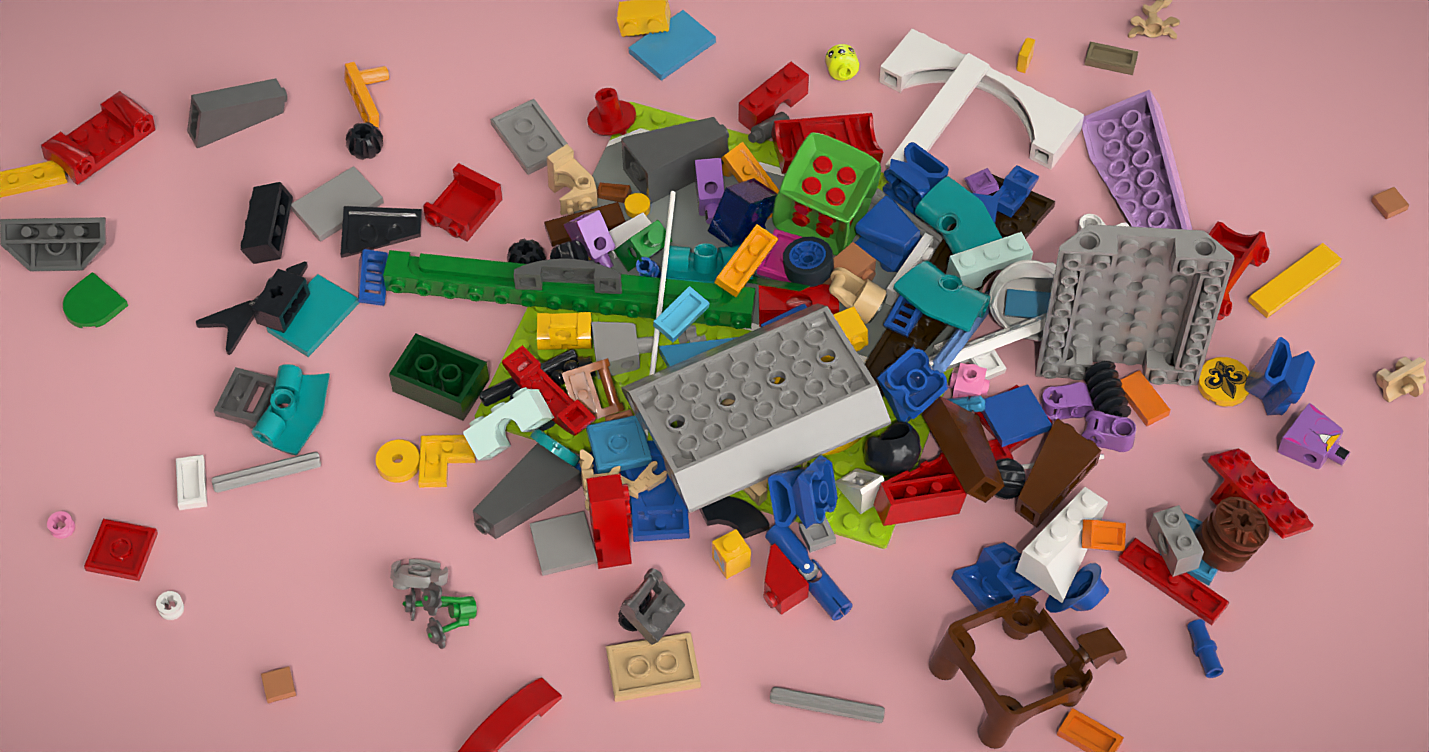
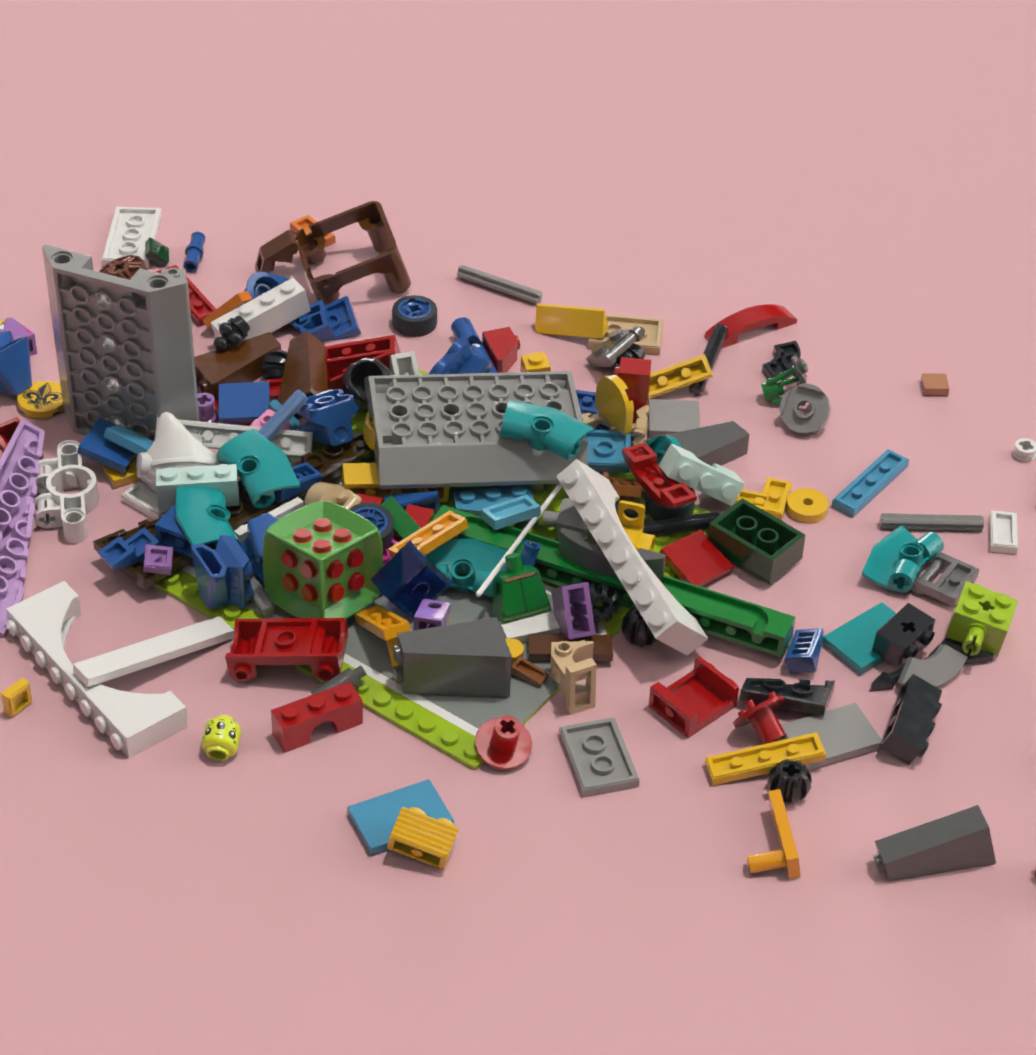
camera: 165 degrees left, 15 degrees down
(208, 339) = (981, 619): none -> lime brick
(250, 285) = (935, 669): none -> light grey tile
(335, 512) = (870, 483): none -> dark azure tile
(388, 161) = (761, 758): none -> yellow tile
(399, 185) = (763, 719): none -> red piece
(458, 670) = (782, 359): none -> black tile
(494, 344) = (696, 559): none -> red tile
(545, 638) = (711, 353): none -> black axle
(577, 592) = (679, 376): none -> yellow slope
(600, 303) = (663, 614): none -> white arch
(614, 460) = (614, 403): none -> yellow tile
(655, 376) = (544, 428): none -> teal panel
(717, 649) = (571, 321): none -> yellow slope
(898, 628) = (414, 315): none -> black wheel
(1070, 479) = (232, 333): none -> black piece
(1246, 631) = (156, 252): none -> dark green tile
(1295, 663) = (130, 231): none -> white tile

